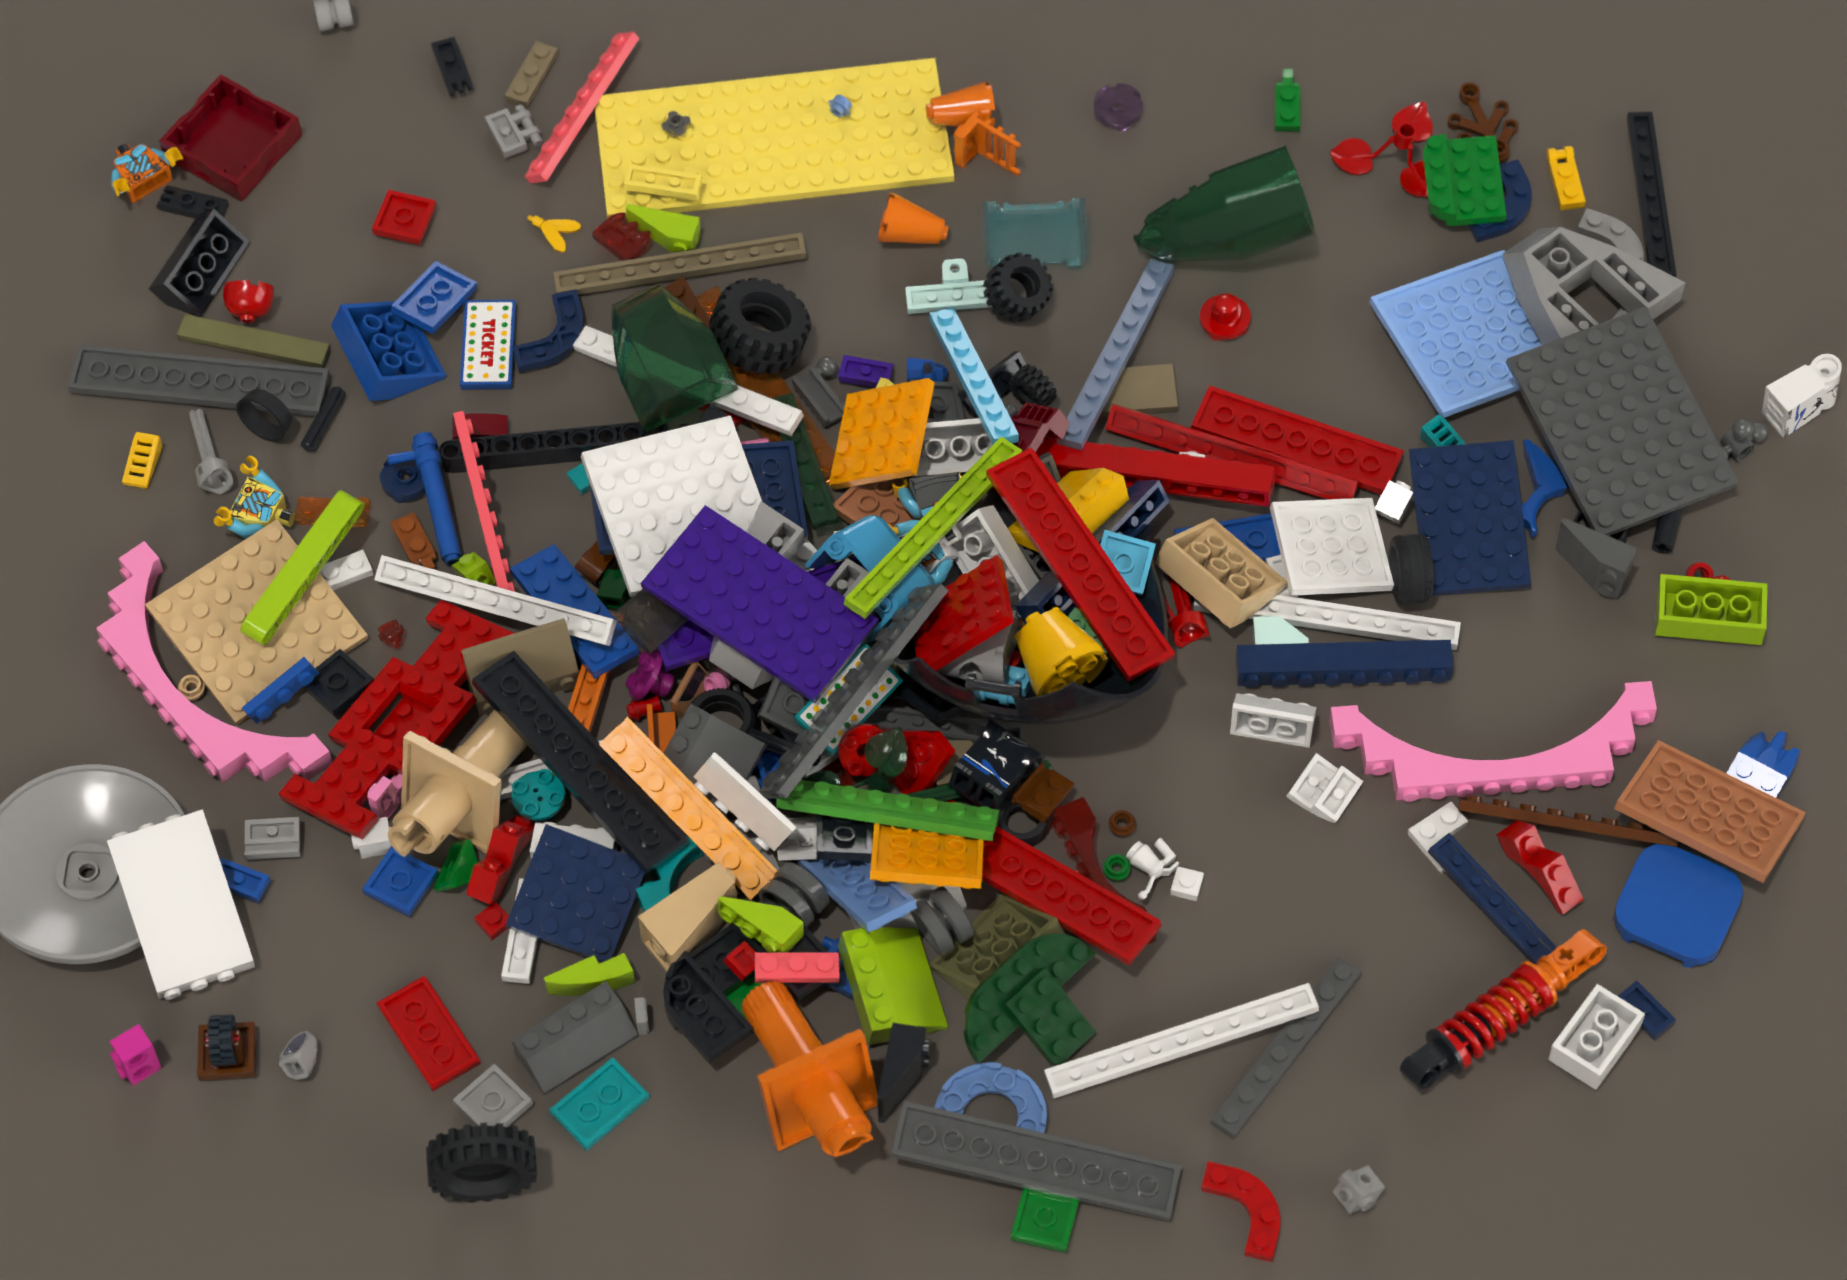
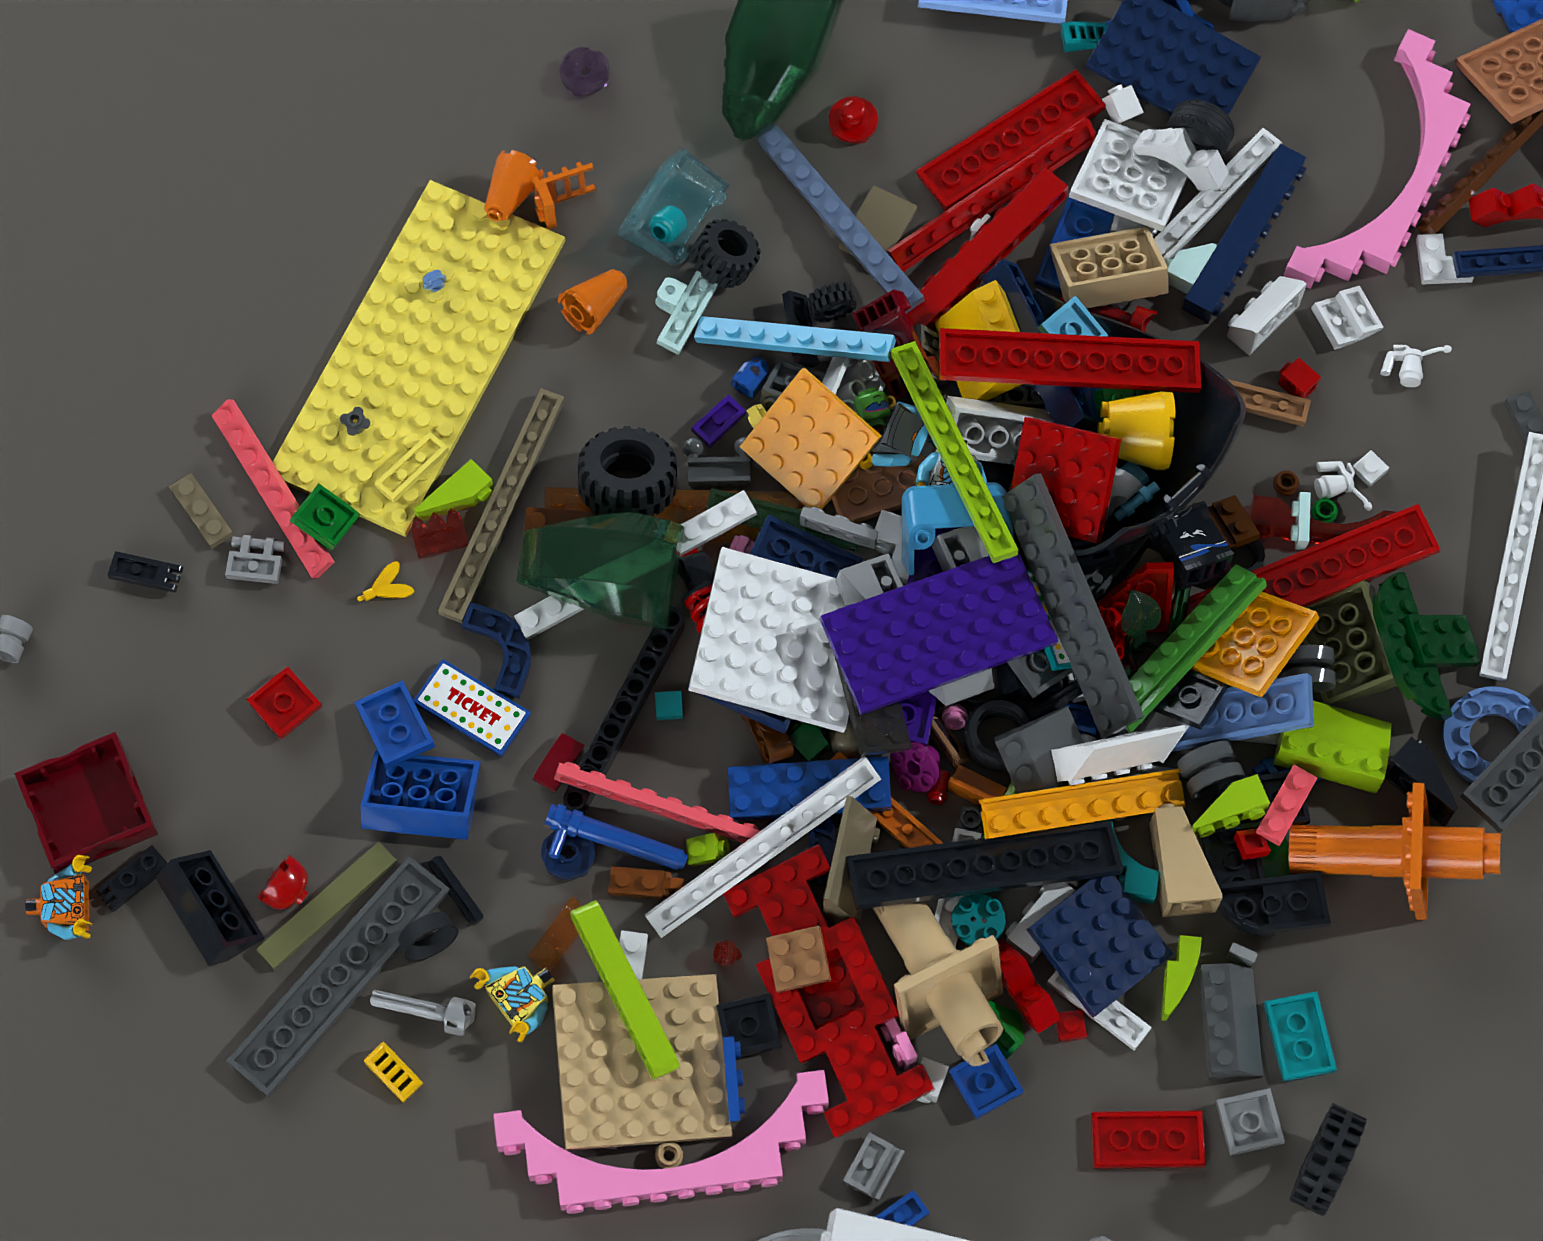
camera: 60 degrees left, 10 degrees up
(411, 677) = (798, 959): none -> medium nougat plate
(579, 152) = (325, 517): none -> green plate
(818, 496) = (839, 527): none -> light grey plate
(947, 459) = (872, 406): none -> bright green head
(1017, 236) = (668, 224): none -> teal head
(1080, 842) = (1300, 530): none -> light aqua plate
(1185, 759) = (1273, 403): none -> medium nougat plate
(1229, 780) = (1298, 378): none -> red brick
(1310, 863) = (1411, 368): none -> white piece
(1375, 560) = (1202, 167): none -> white arch

